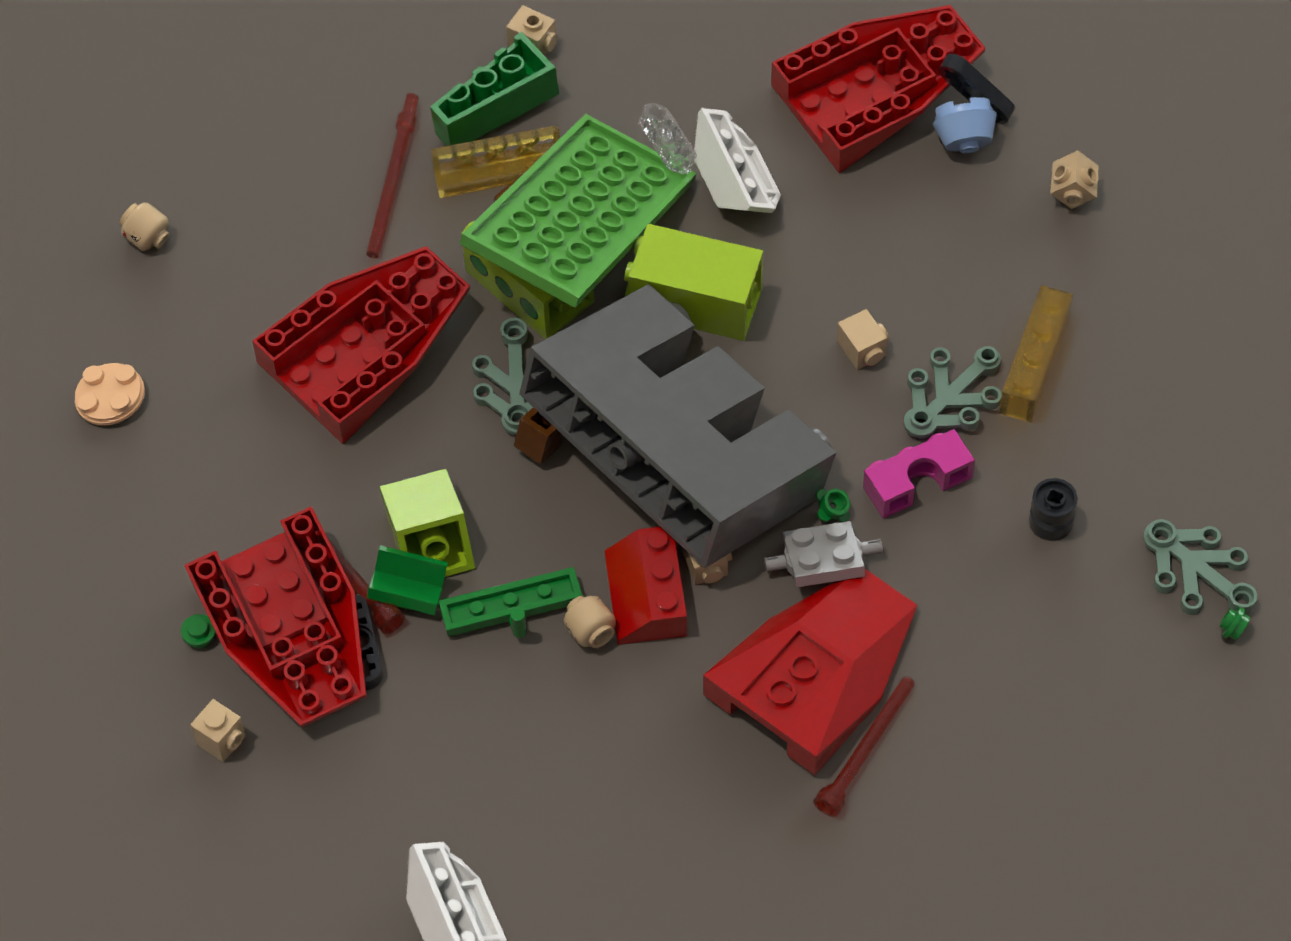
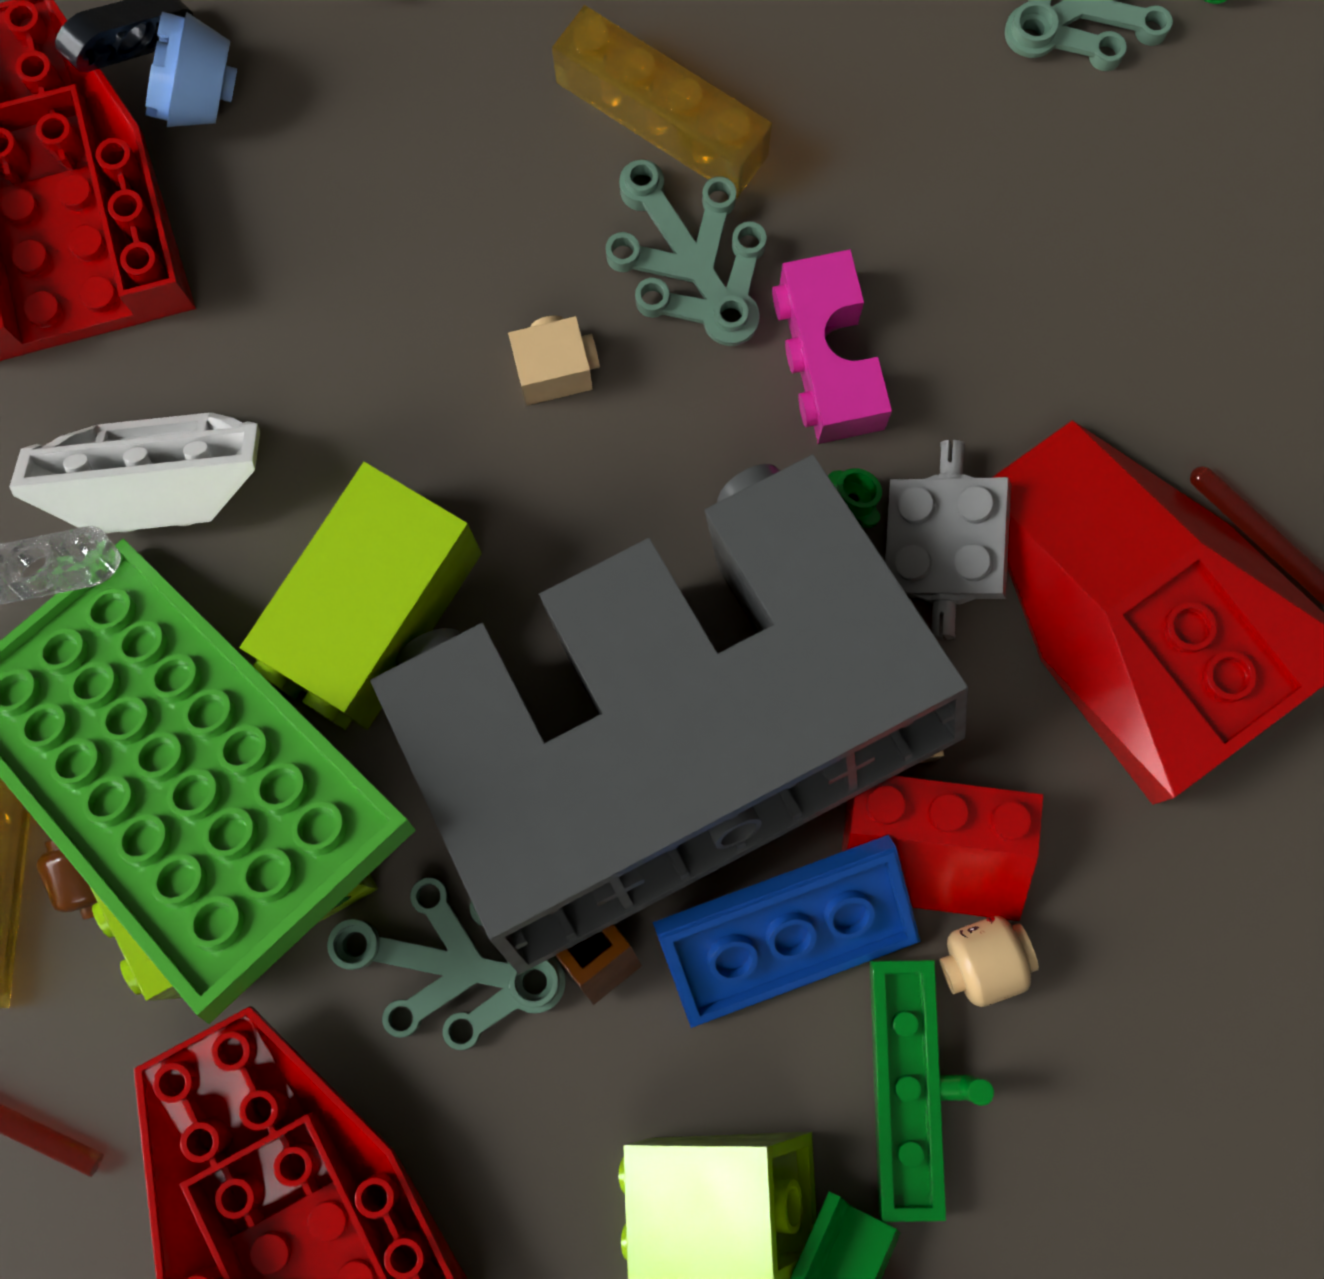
camera: 75 degrees left, 20 degrees up
(577, 521) = (788, 931): none -> blue tile
(1053, 509) = (962, 161): black wheel -> none

